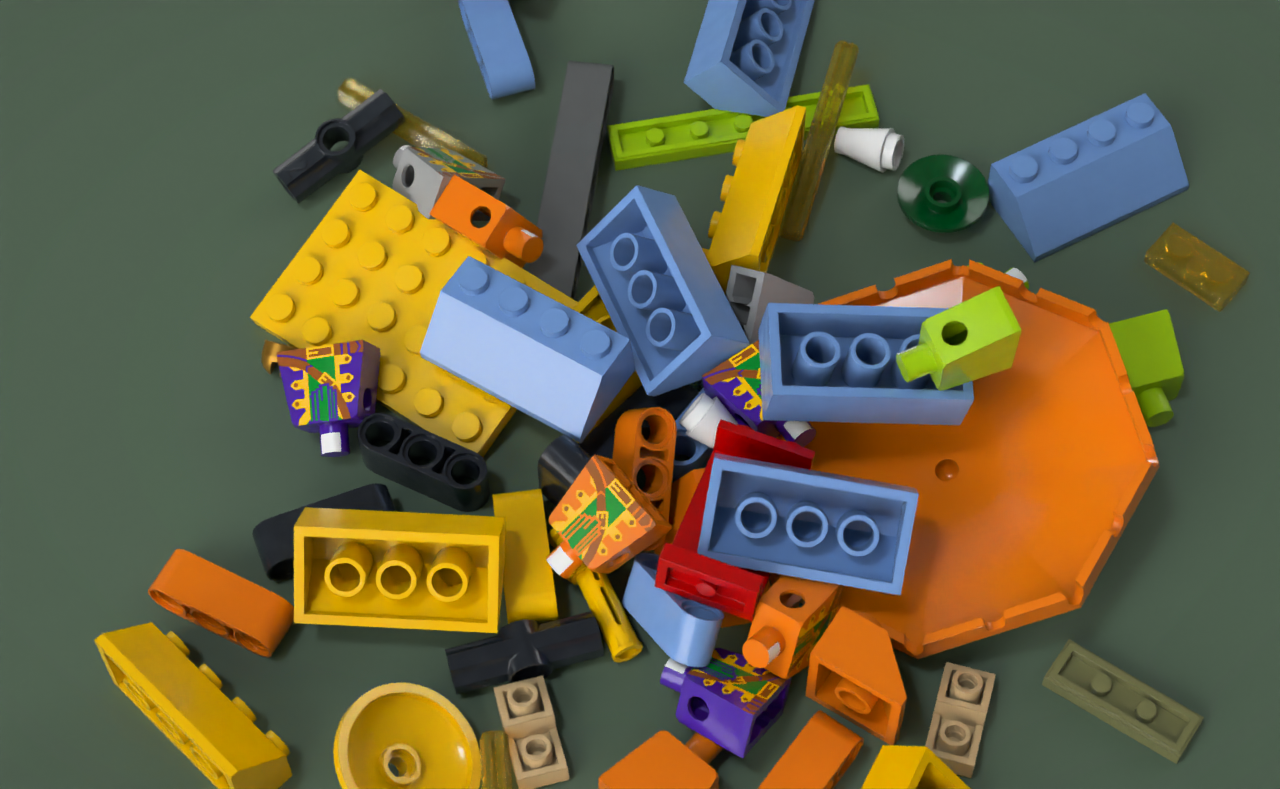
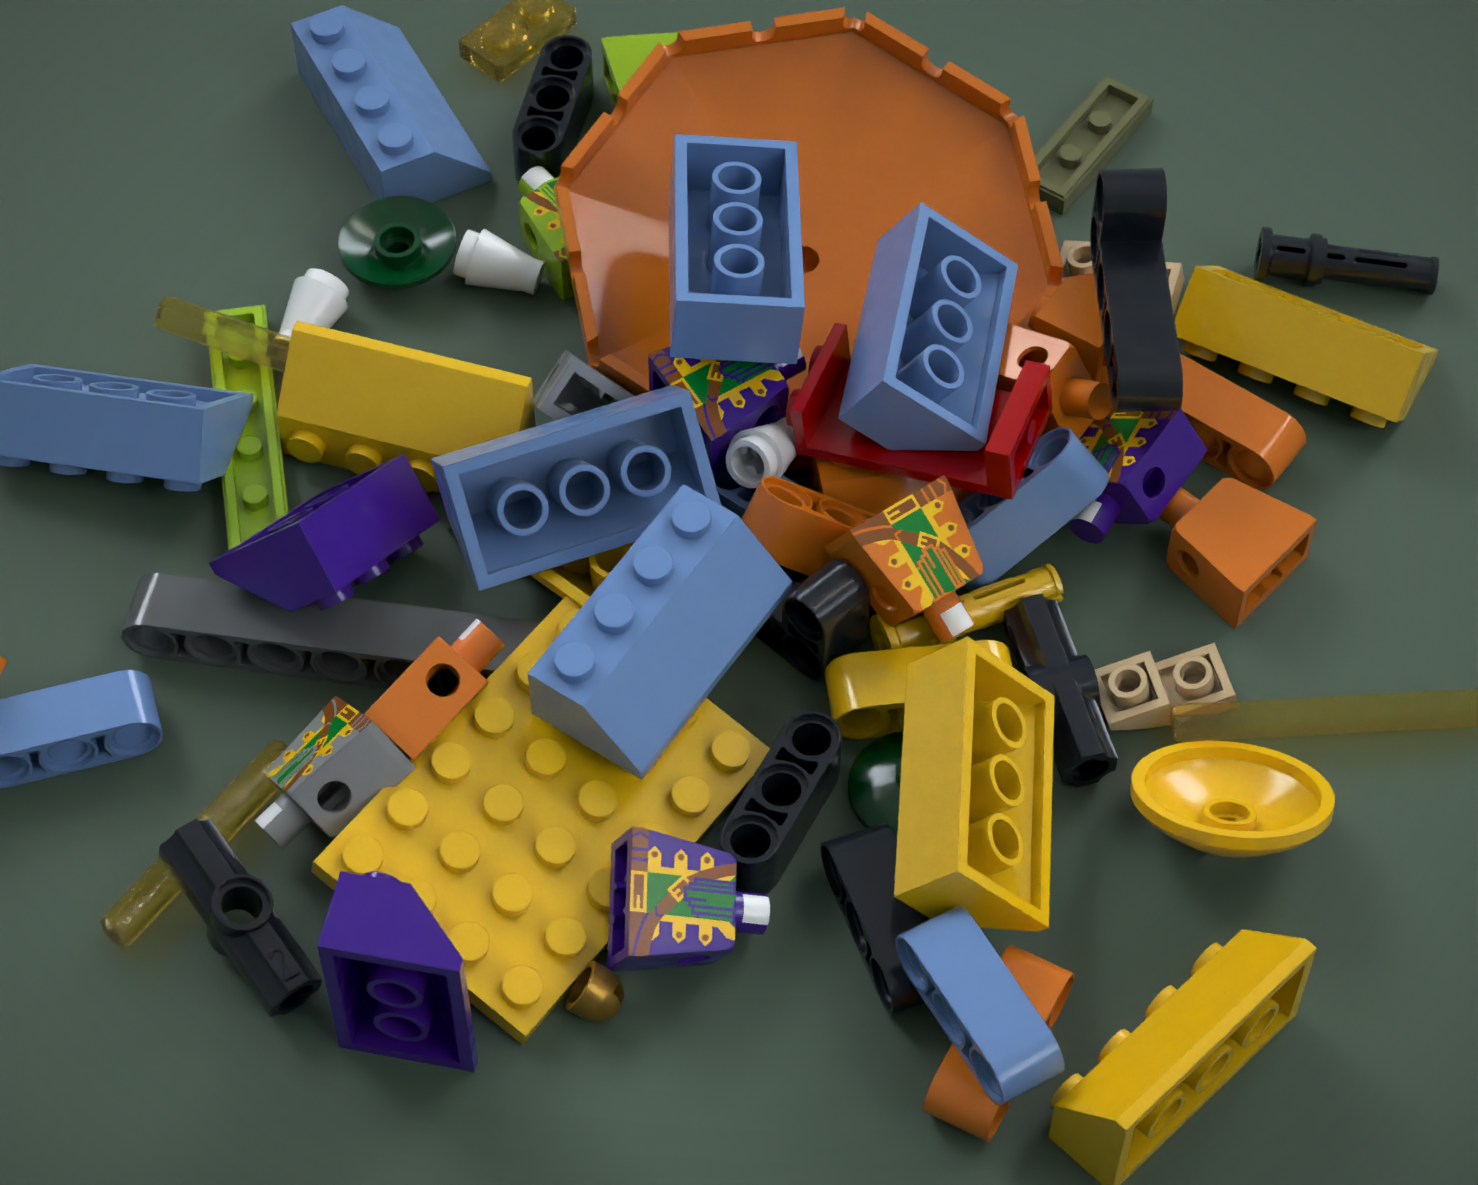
camera: 90 degrees left, 5 degrees down
(221, 566) = (979, 1005): none -> medium blue beam
(263, 216) = (394, 975): none -> dark purple slope
(628, 152) = (333, 539): none -> dark purple slope
(842, 668) = (1135, 290): none -> black beam
(932, 247) = (497, 264): none -> white cone
(964, 342) = (750, 106): lime torso -> none
(1117, 284) = (554, 106): none -> black beam

